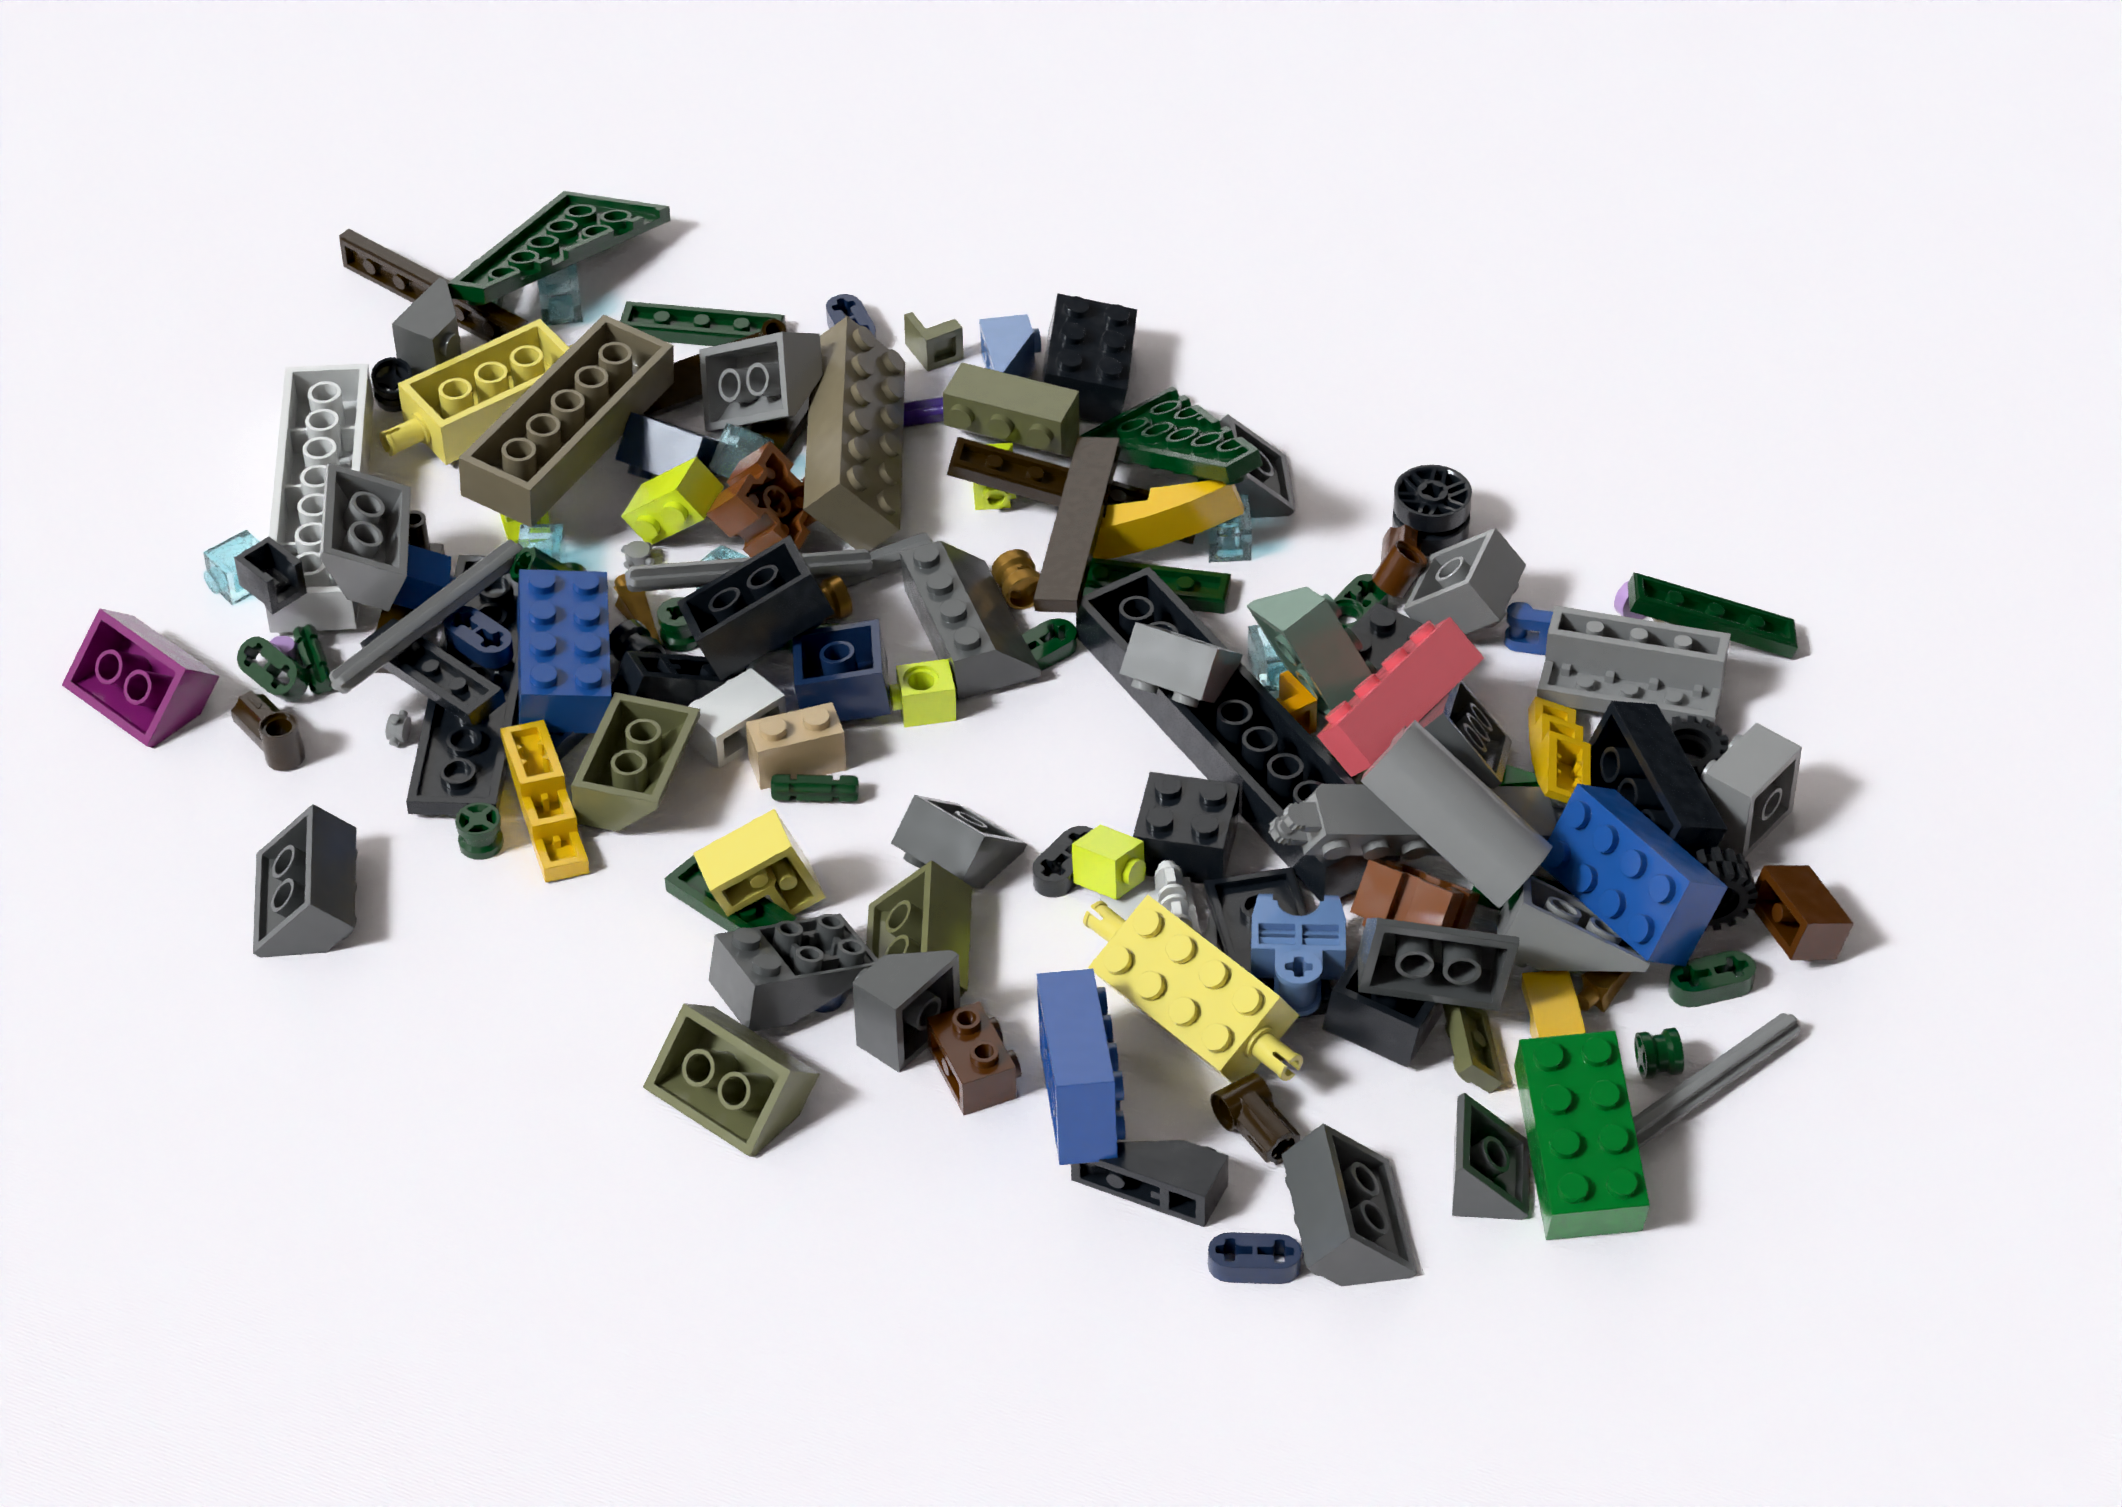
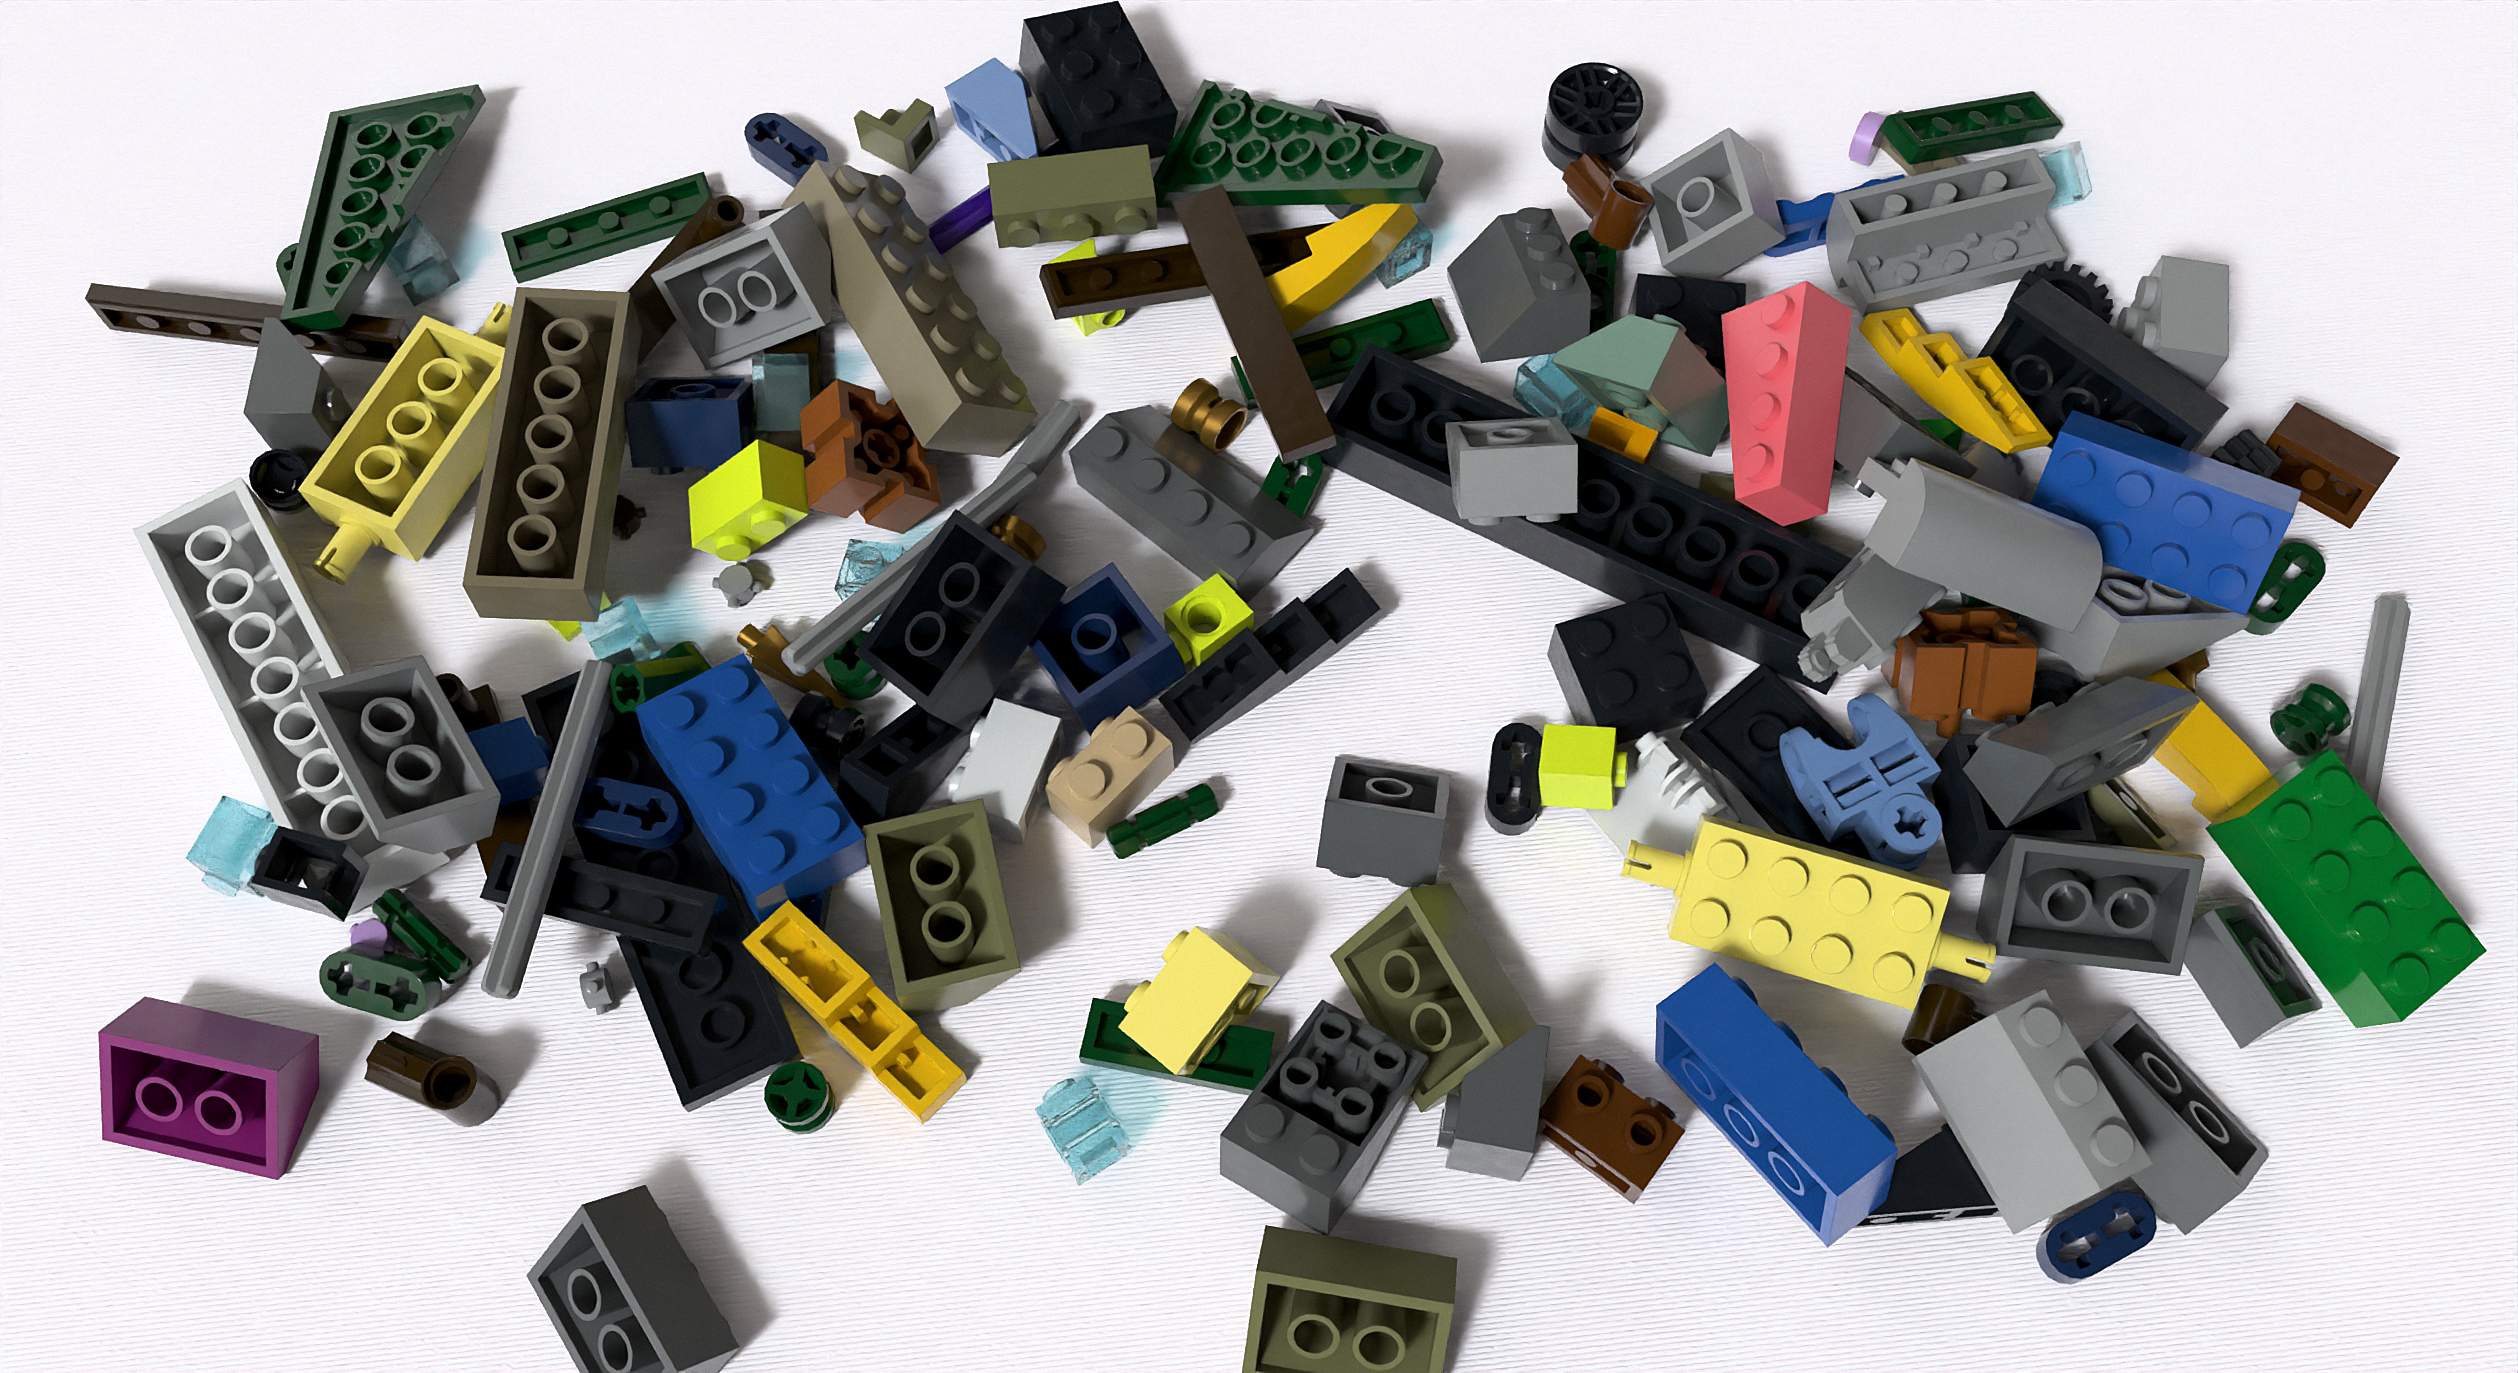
camera: 30 degrees left, 20 degrees up
(591, 490) = (627, 518): none -> dark brown piece
(639, 917) = (1082, 1128): none -> clear light blue brick
(944, 731) = (1270, 658): none -> black slope
(1243, 1142) = (2030, 1111): none -> light grey slope
(1309, 561) = (1521, 288): none -> dark grey slope
(1390, 1061) = (2090, 904): none -> dark grey slope
(1760, 673) = (2069, 173): none -> clear light blue panel

